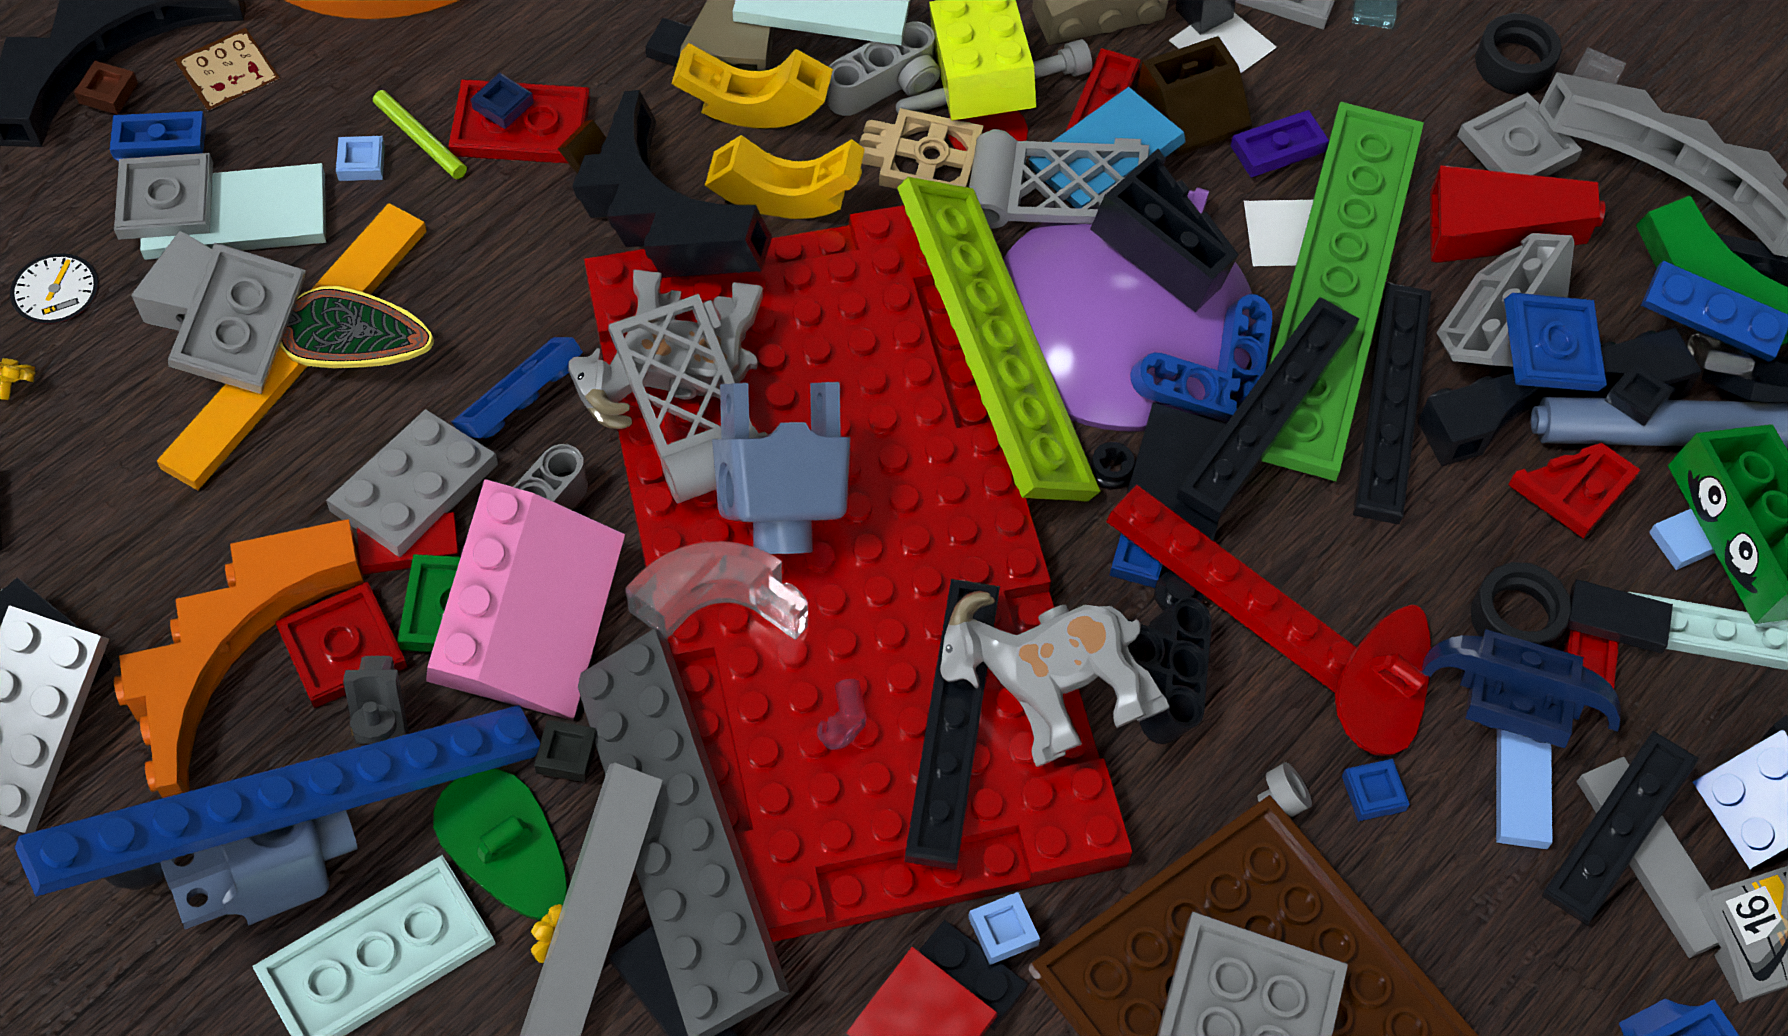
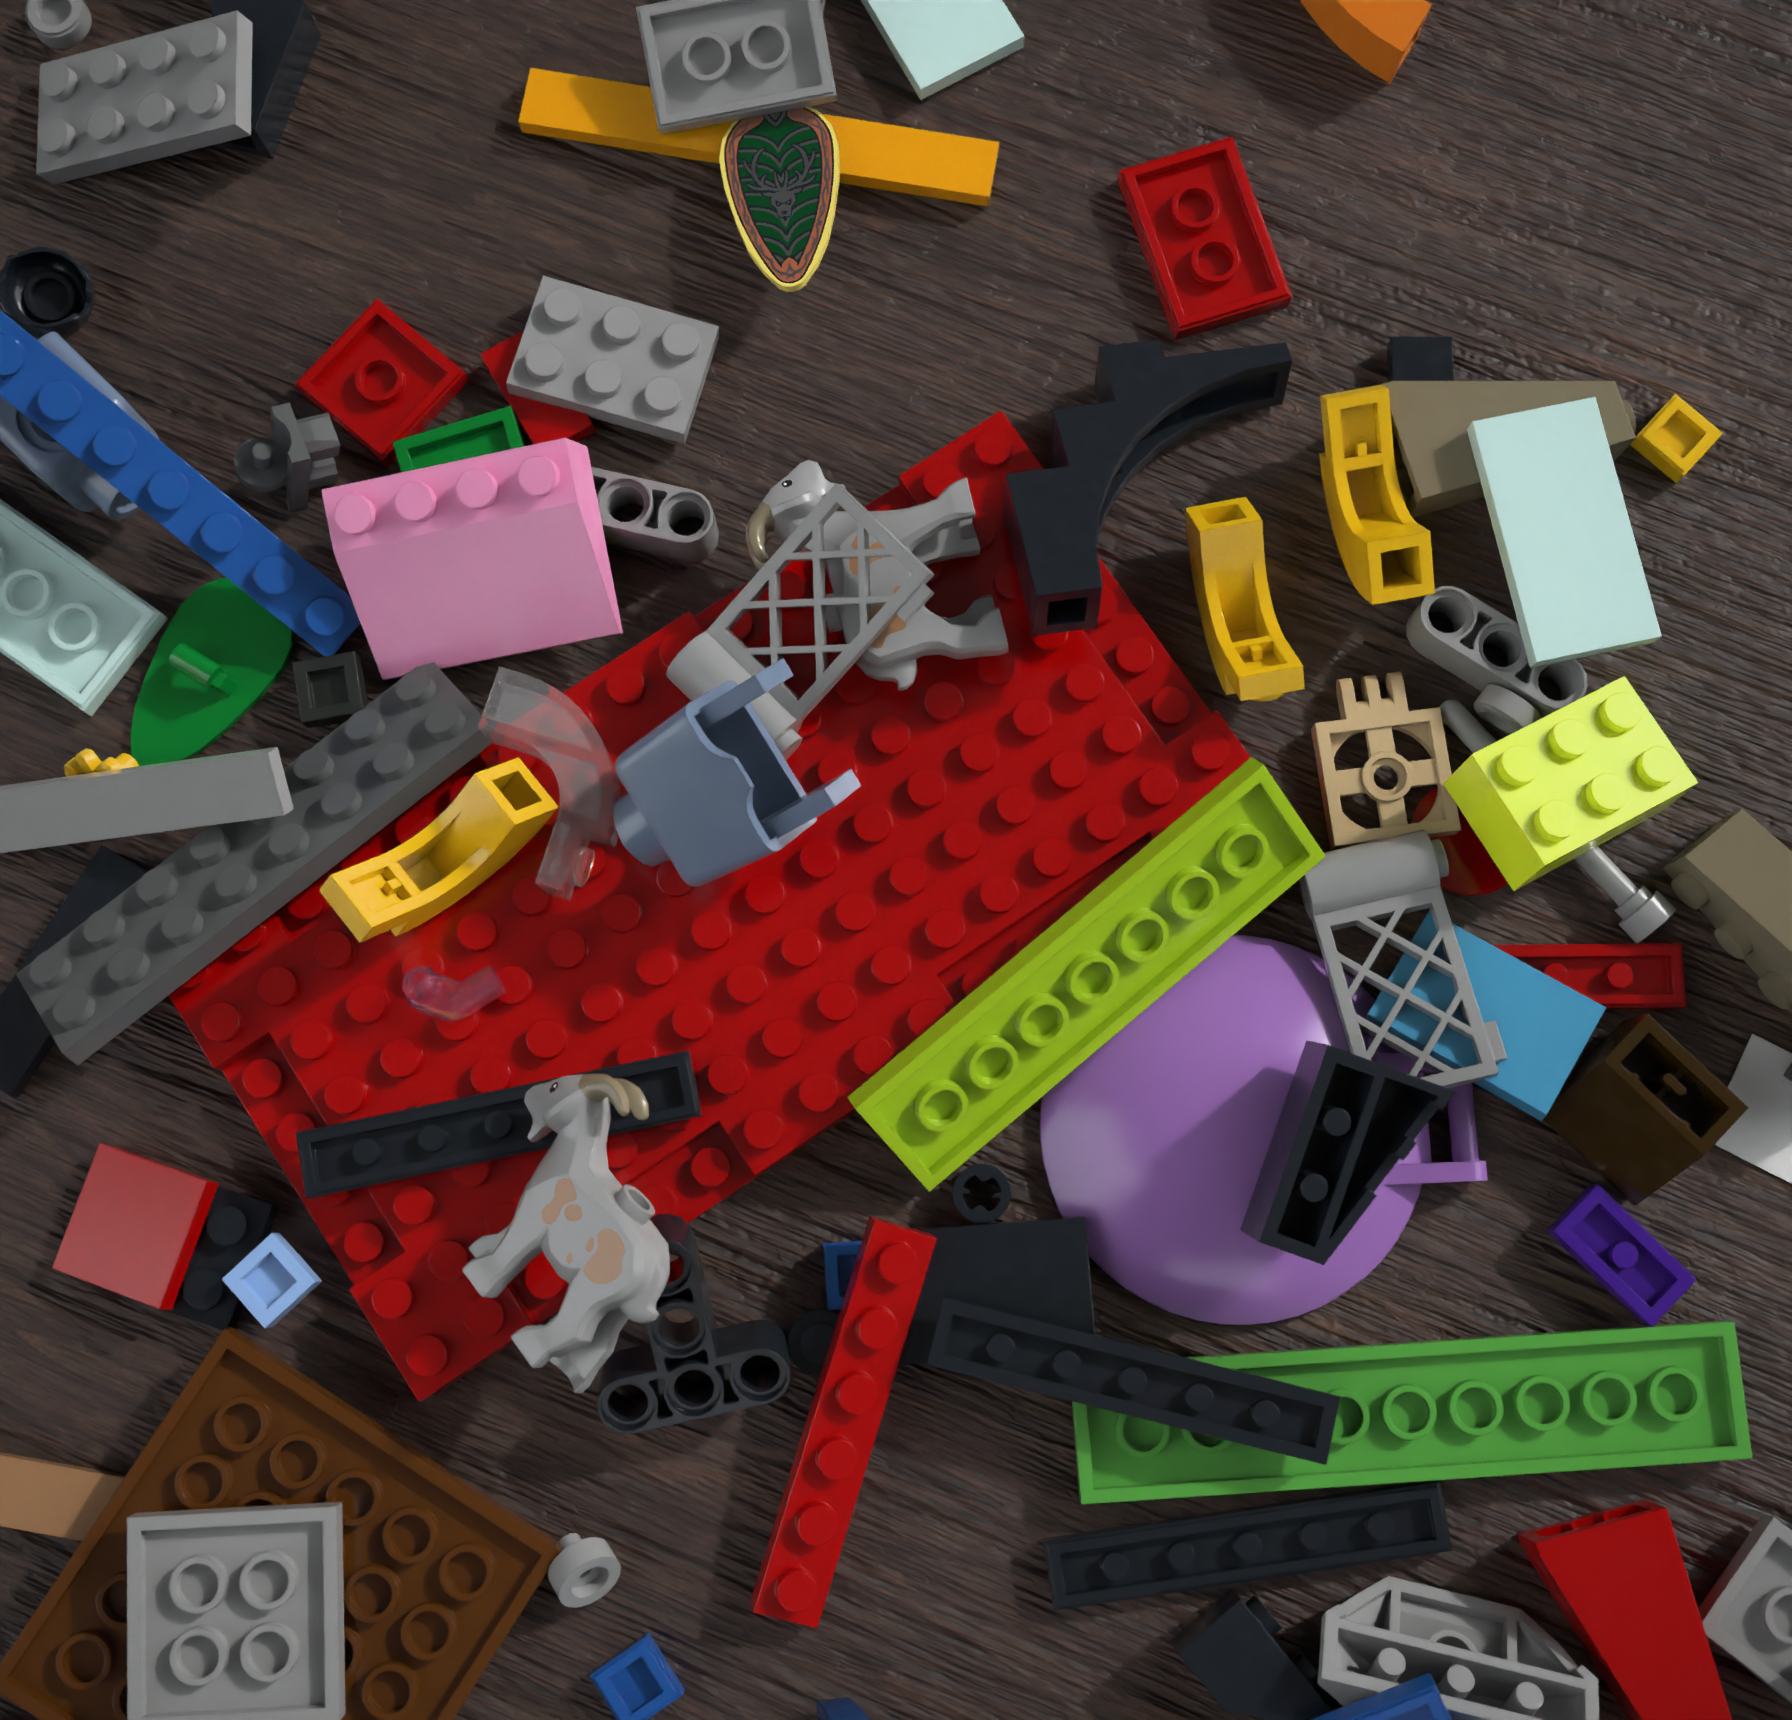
camera: 75 degrees right, 20 degrees up
(266, 582) = (328, 239): orange arch -> none
(360, 158) = (1059, 77): light blue tile -> none
(419, 134) = (1127, 127): lime bar -> none
(502, 100) = (1213, 200): dark blue tile -> none
(518, 388) = (789, 417): blue plate -> none
(584, 141) = (1185, 330): dark brown tile -> none
(742, 669) = (445, 860): none -> yellow arch
(1217, 383) = (1156, 1301): blue beam -> none
(1276, 230) = (1475, 1295): white sticker -> none
(1382, 683) = (784, 1656): red shield -> none

